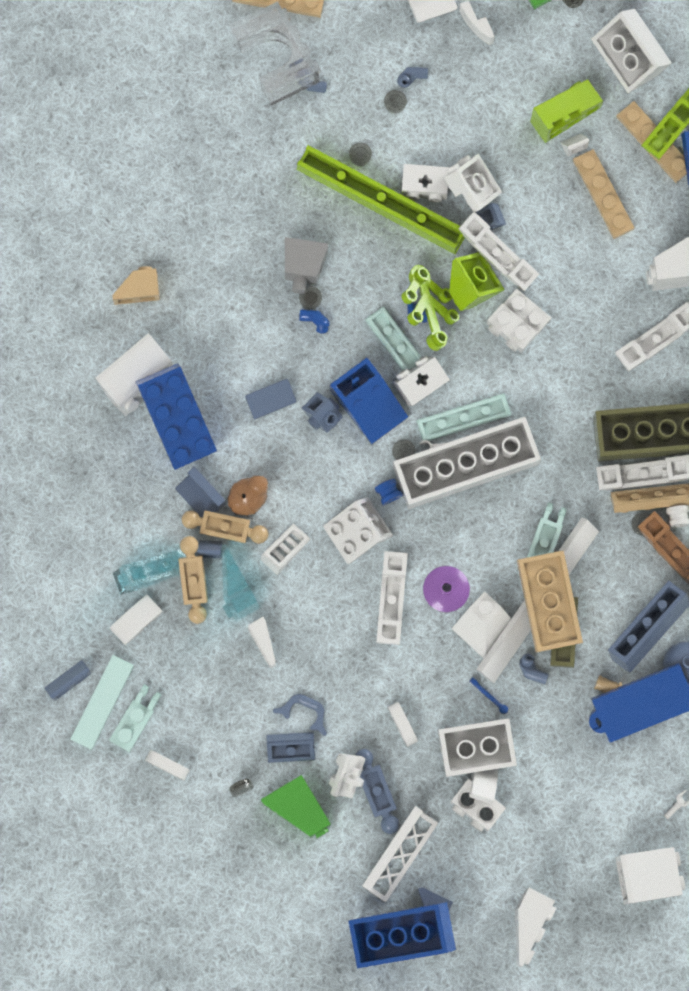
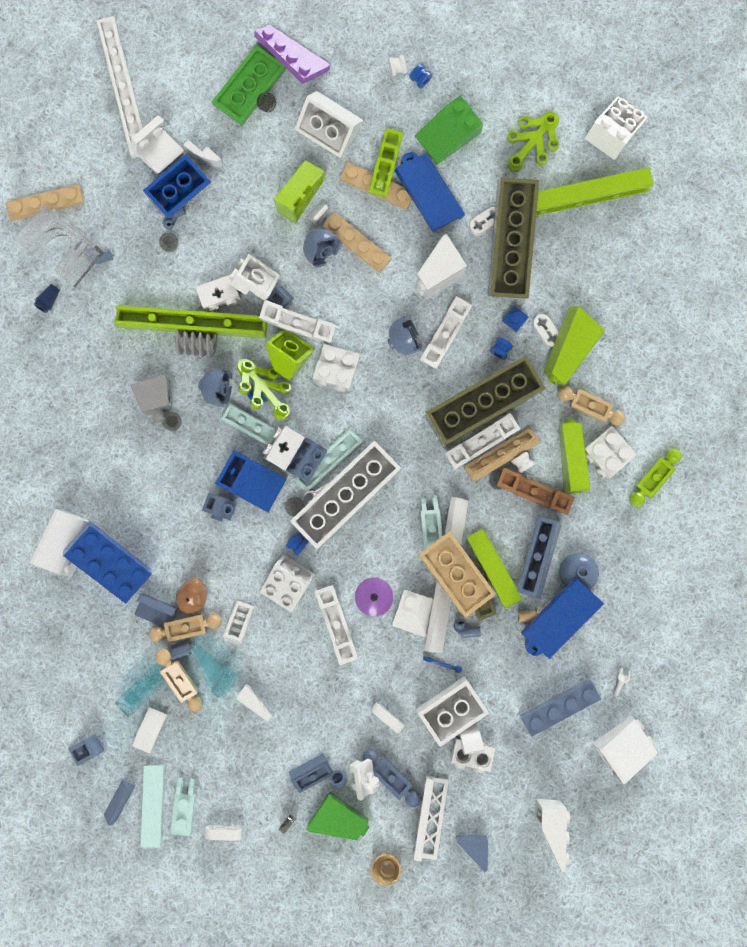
camera: 20 degrees left, 5 degrees up
(57, 608) = (86, 750): none -> sand blue slope
(138, 287) = (36, 473): tan slope -> none
(234, 103) = (47, 298): none -> dark blue cone
(270, 399) = (176, 512): sand blue slope -> none
(308, 702) = (309, 733): sand blue helmet -> none
(317, 318) = (183, 434): blue arm -> none
(317, 766) = (338, 776): none -> sand blue hinge
(330, 892) = (388, 874): none -> tan hair
(360, 154) = (160, 294): clear smoke tile -> none
(375, 225) = (195, 344): none -> light grey piece
(376, 282) = (216, 387): none -> sand blue cylinder
(402, 935) = (461, 887): blue brick -> none
(432, 46) = (176, 186): none -> blue slope
(440, 405) = (306, 460): none -> sand blue bracket
(562, 177) = (320, 243): none -> sand blue cylinder
(593, 617) = (494, 569): none -> lime slope
(597, 799) = (560, 707): none -> sand blue brick
(608, 320) = (403, 337): none -> sand blue cylinder

